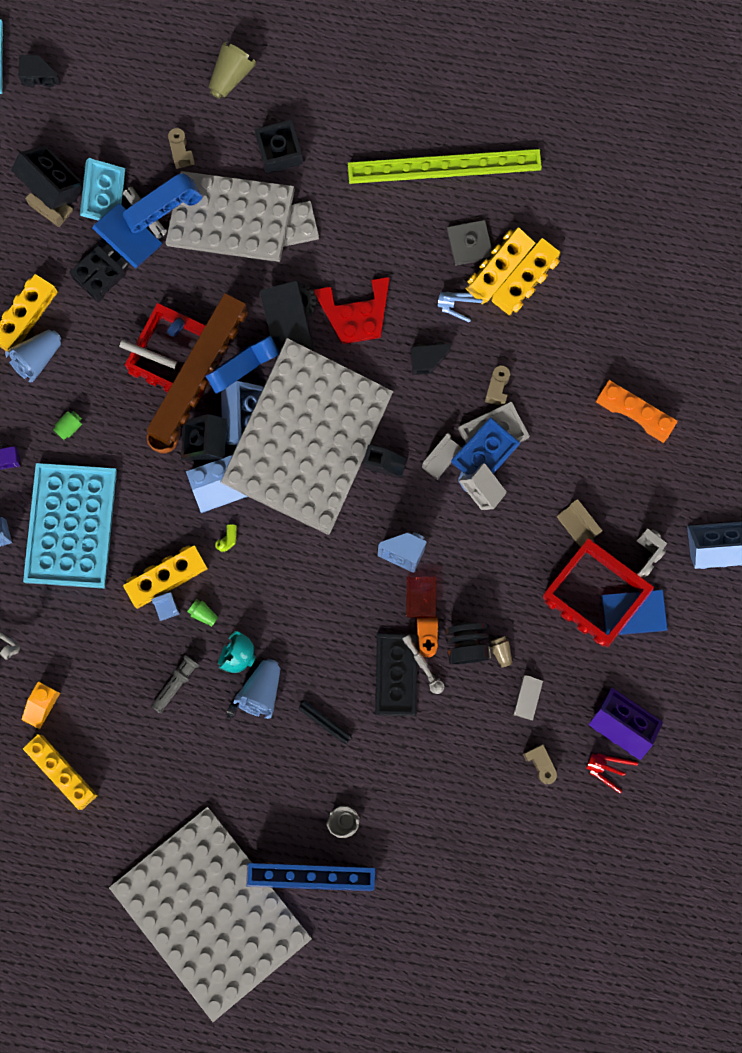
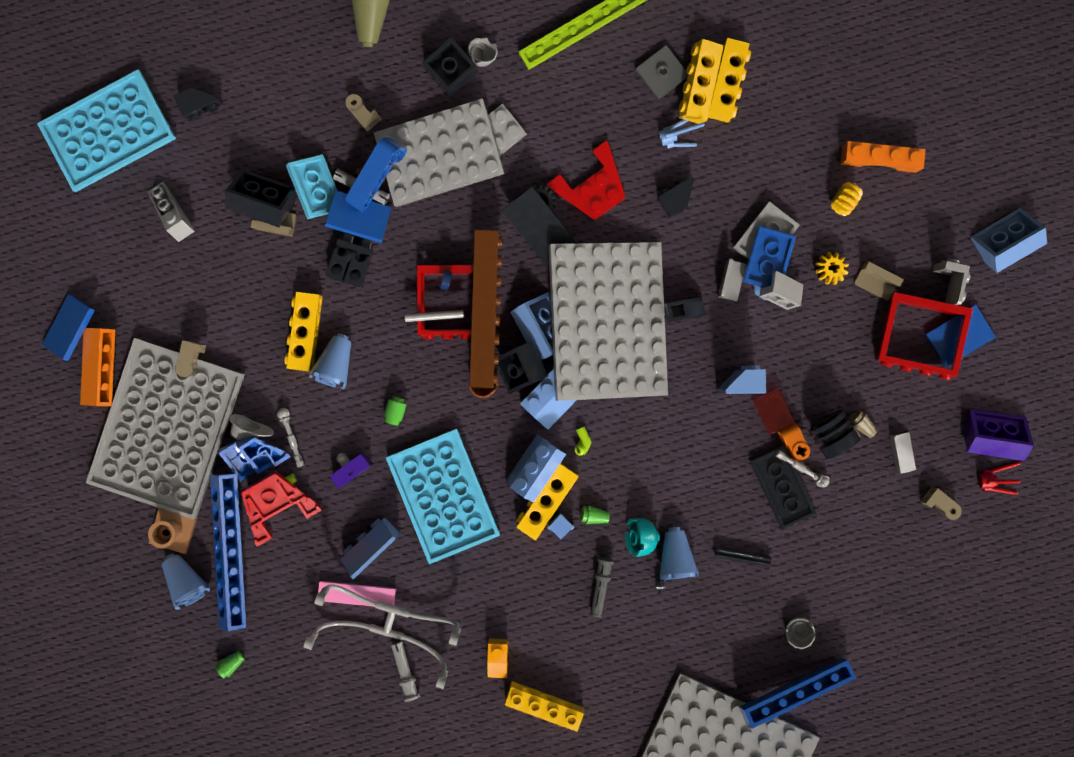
camera: 25 degrees left, 10 degrees up
(170, 540) = (535, 468): none -> medium blue slope
(242, 363) = (520, 284): blue beam -> none
(314, 147) = (481, 51): none -> light grey hair
(498, 380) = (749, 193): dark tan leg -> none
(534, 493) = (829, 275): none -> yellow gear
(584, 432) = (846, 198): none -> yellow gear

